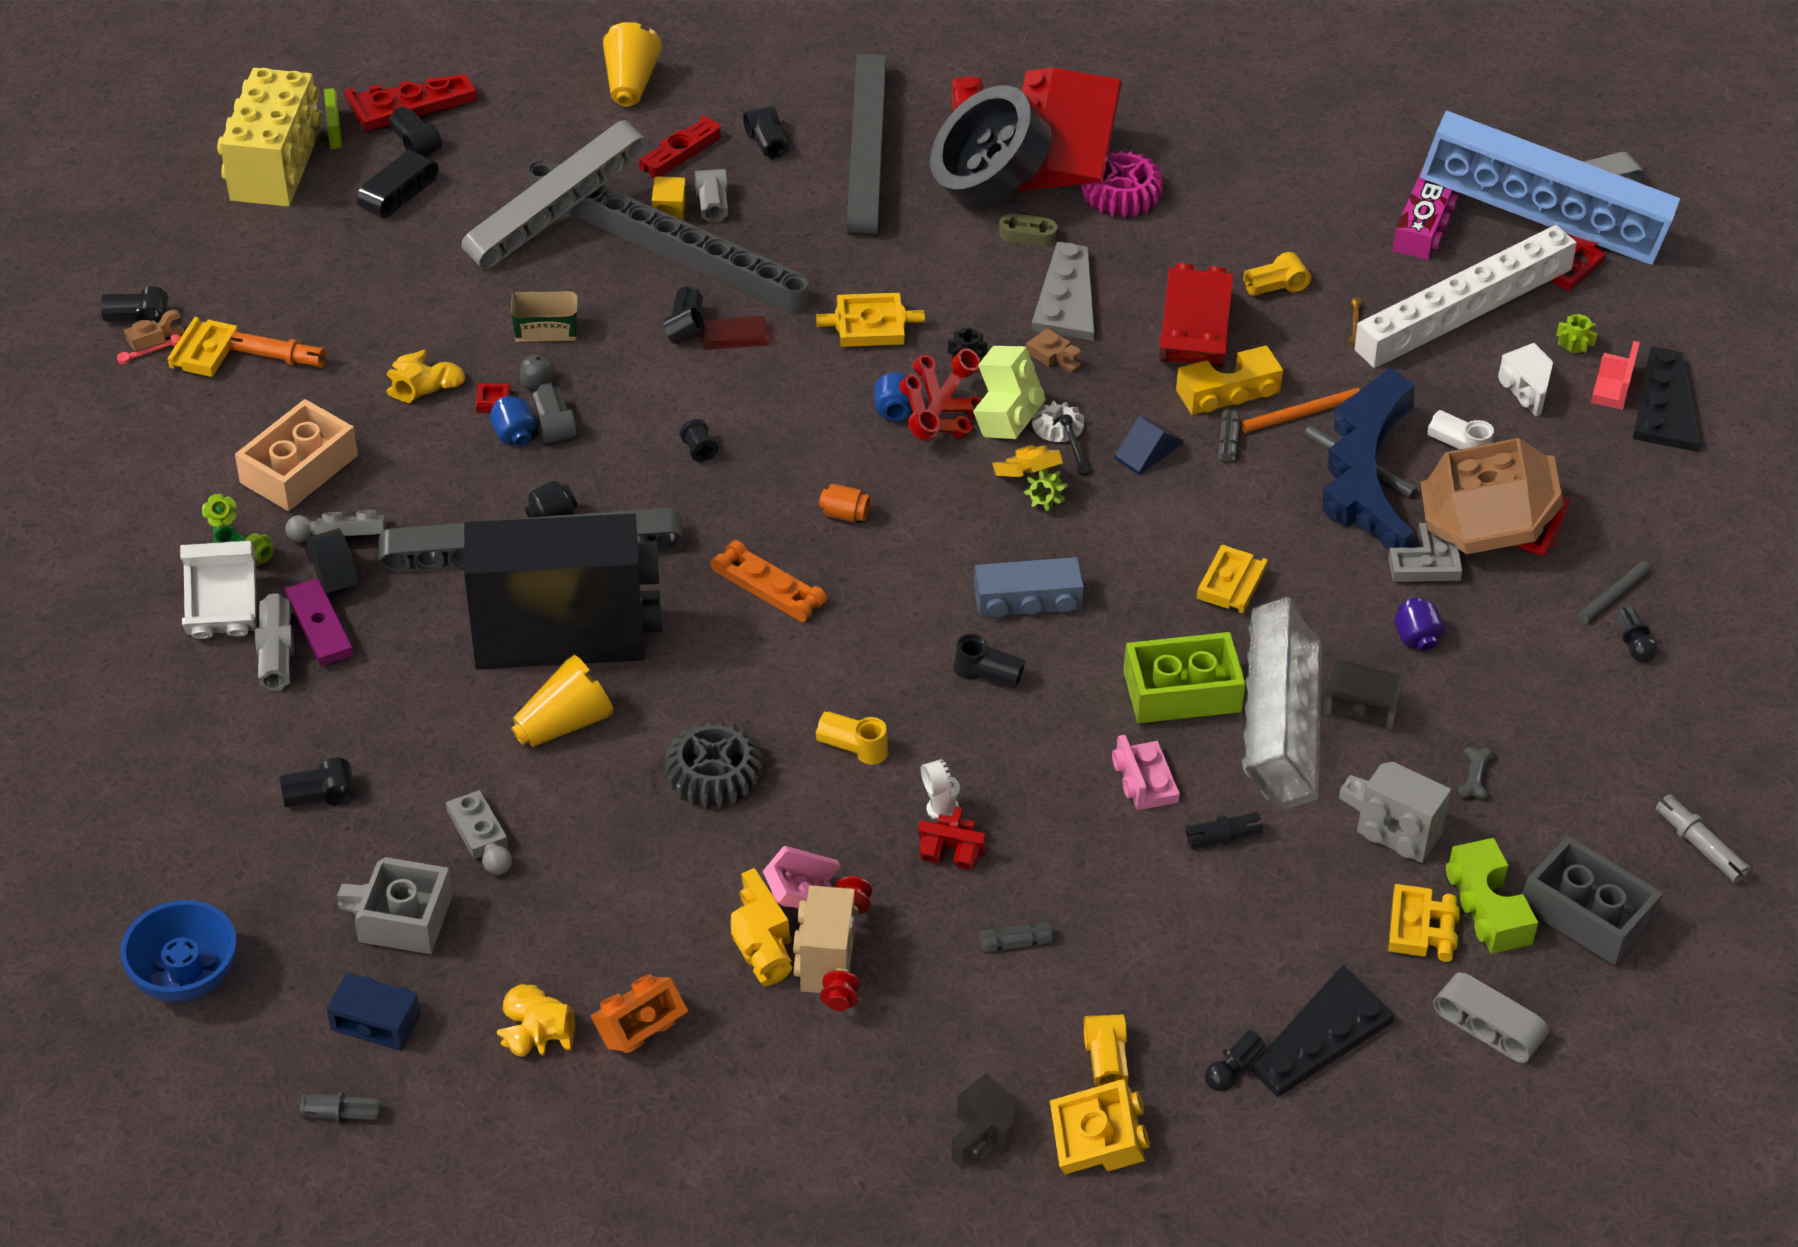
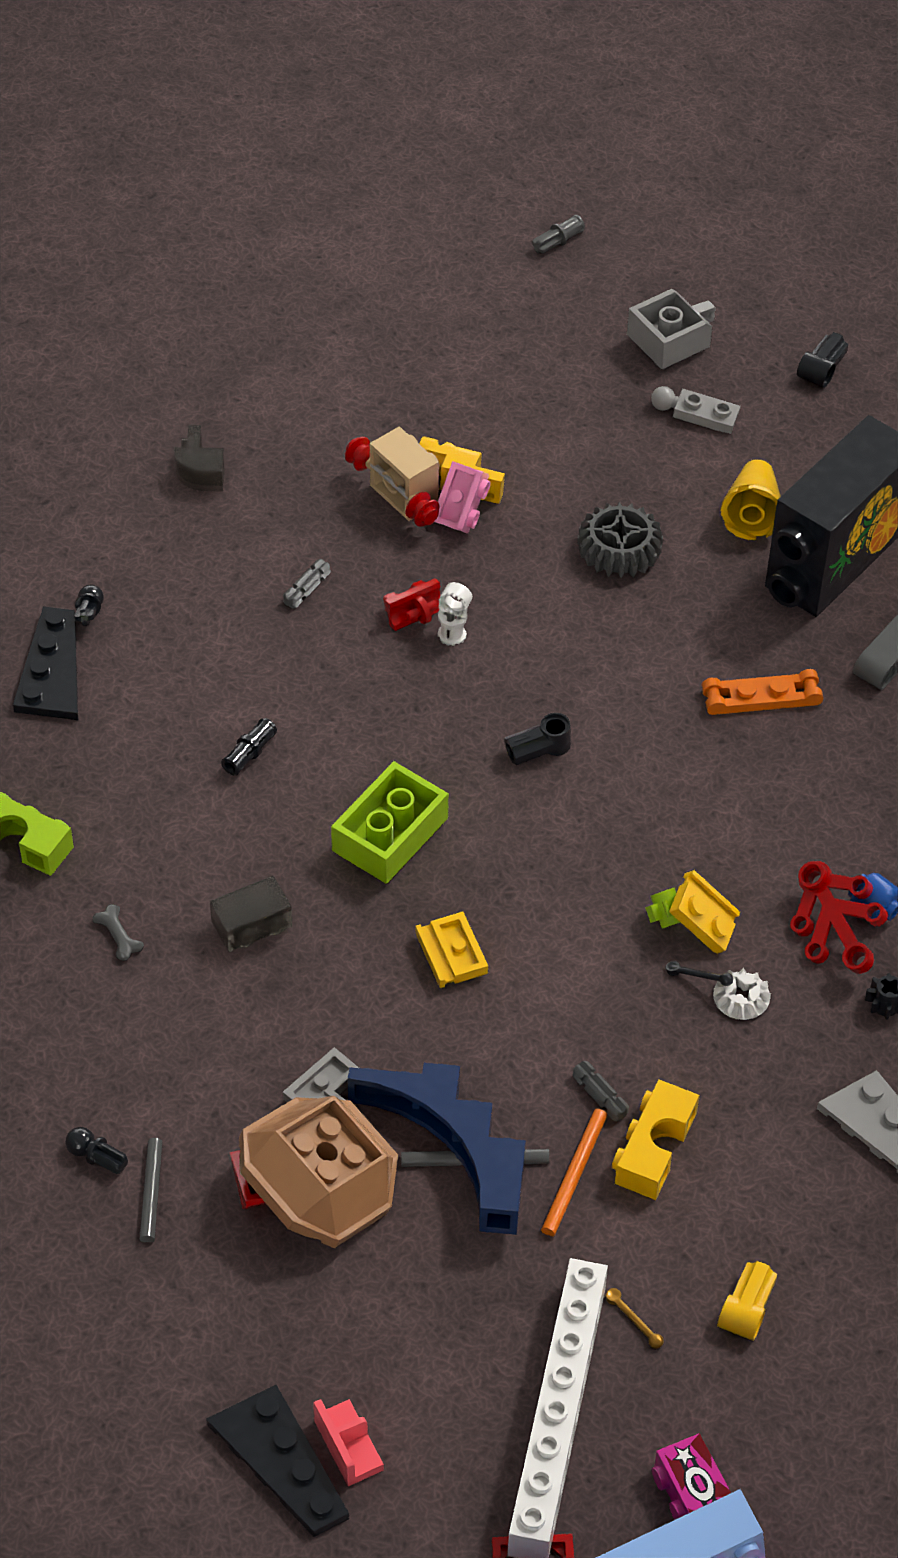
camera: 135 degrees right, 5 degrees up
(179, 950) = (740, 215): blue piece -> none
(373, 1011) = (607, 278): dark blue brick -> none
(541, 1020) = (513, 340): yellow animal -> none
(639, 1013) = (461, 370): orange brick -> none
(845, 503) = (790, 784): orange brick -> none
(863, 737) = (550, 623): yellow piece -> none
(1012, 392) = (792, 957): yellowish green brick -> none
(1028, 587) = (582, 818): sand blue brick -> none
(1052, 349) = (831, 1060): medium nougat plate -> none
(1099, 1128) = (126, 504): yellow plate -> none
(1107, 1044) = (178, 558): yellow piece -> none
(1145, 774) = (346, 747): bright pink bracket -> none
(1146, 445) = (649, 1031): dark blue slope -> none
(1196, 315) = (740, 1150): red bracket -> none
(1283, 704) = (294, 843): clear brick -> none
(1399, 809) = (134, 826): light grey hinge -> none
(1411, 921) = (60, 776): yellow plate -> none
(1419, 624) = (271, 1015): dark purple head -> none
(1459, 432) = (416, 1244): white piece -> none
(1527, 376) = (418, 1364): white slope -> none
(1577, 333) = (434, 1467): lime gear -> none

